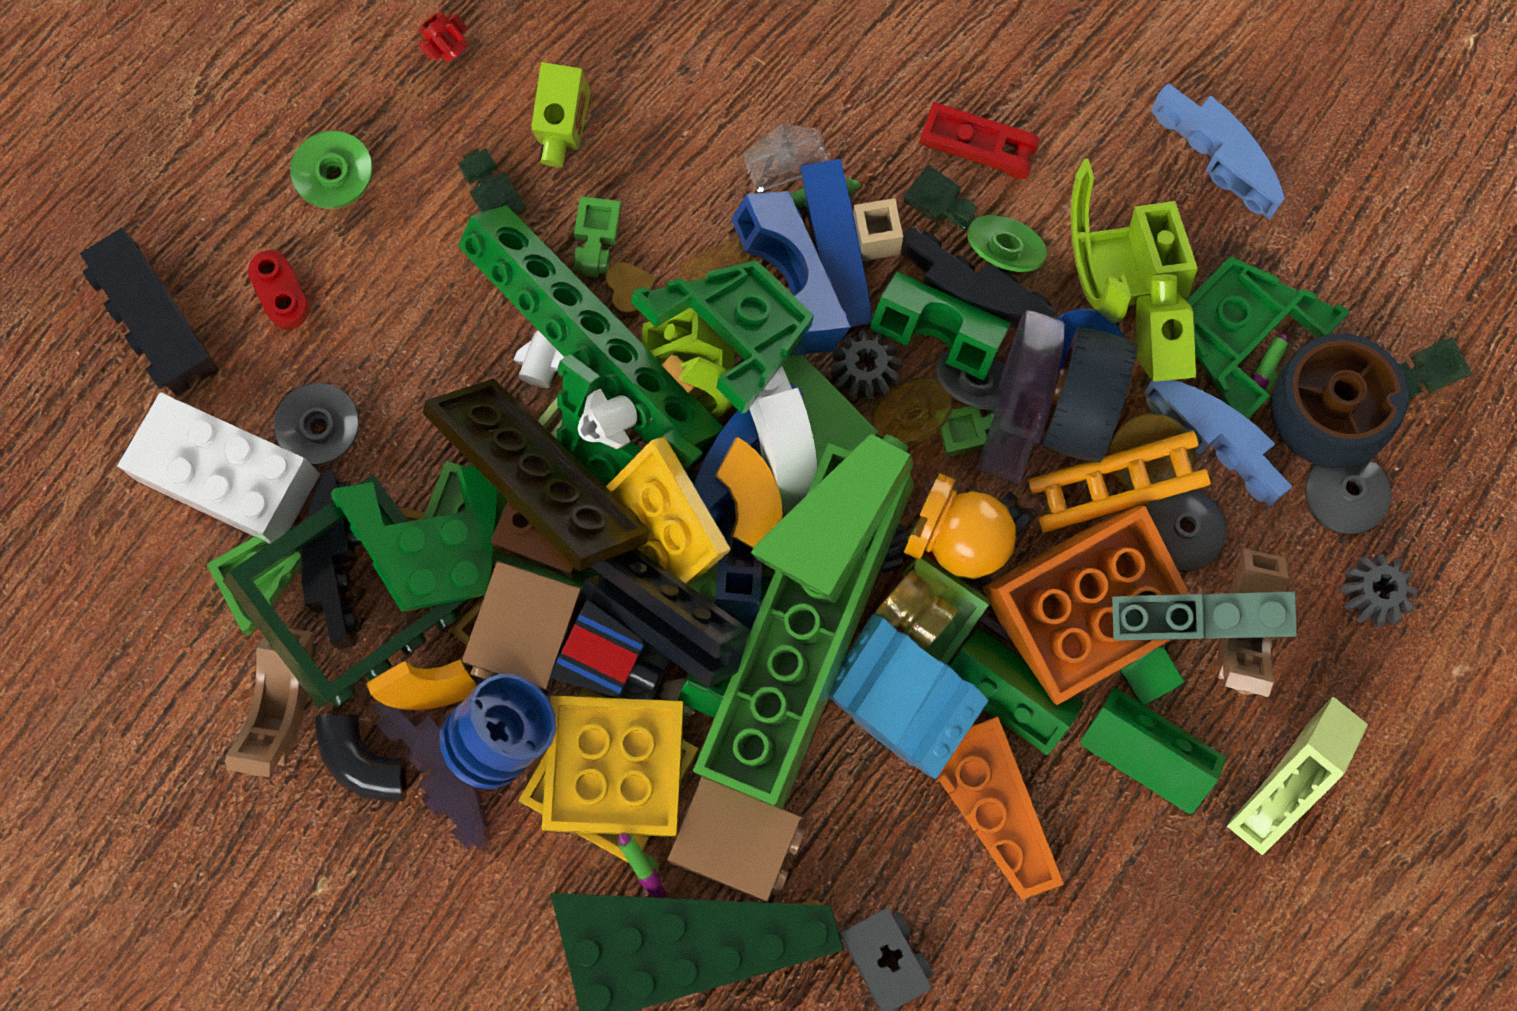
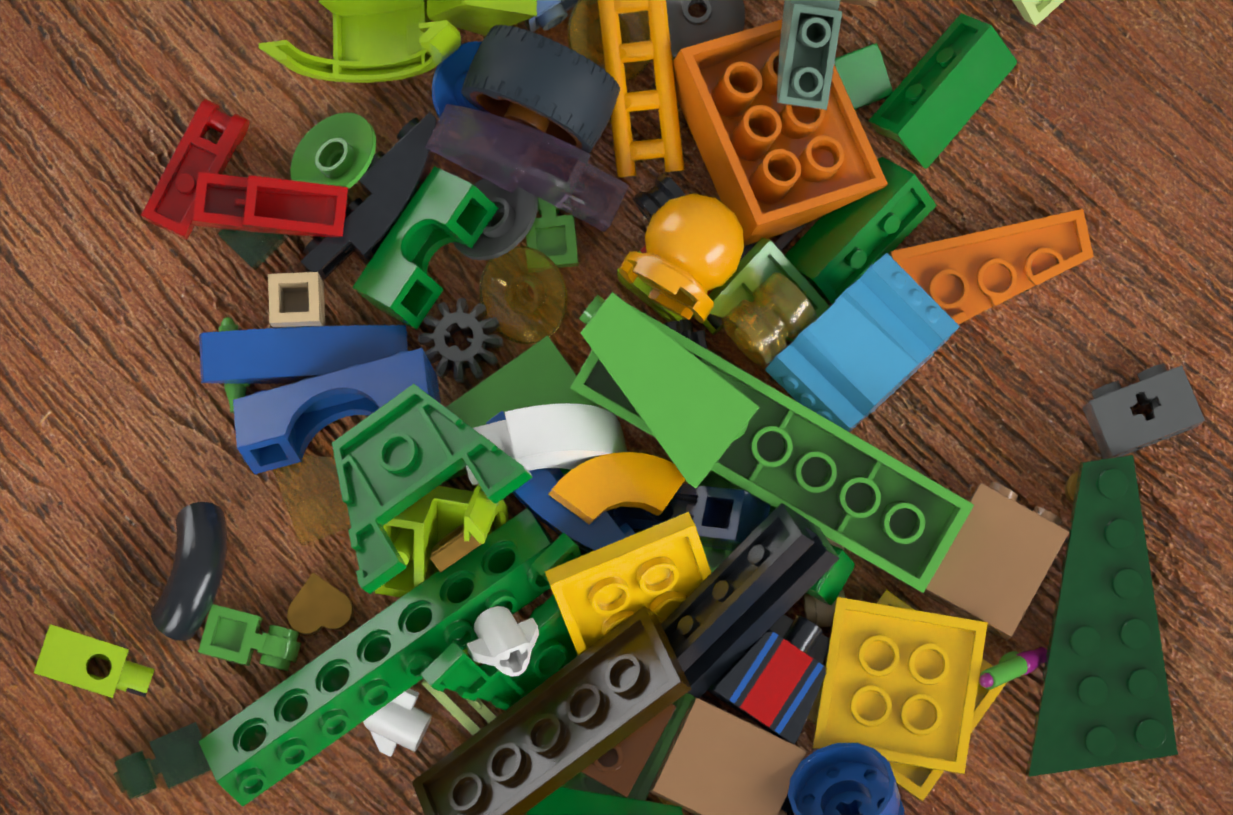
camera: 80 degrees left, 5 degrees up
(645, 182) = (194, 573): none -> black cylinder
(781, 153) = (181, 400): clear slope -> none
(954, 192) = (269, 205): none -> red slope

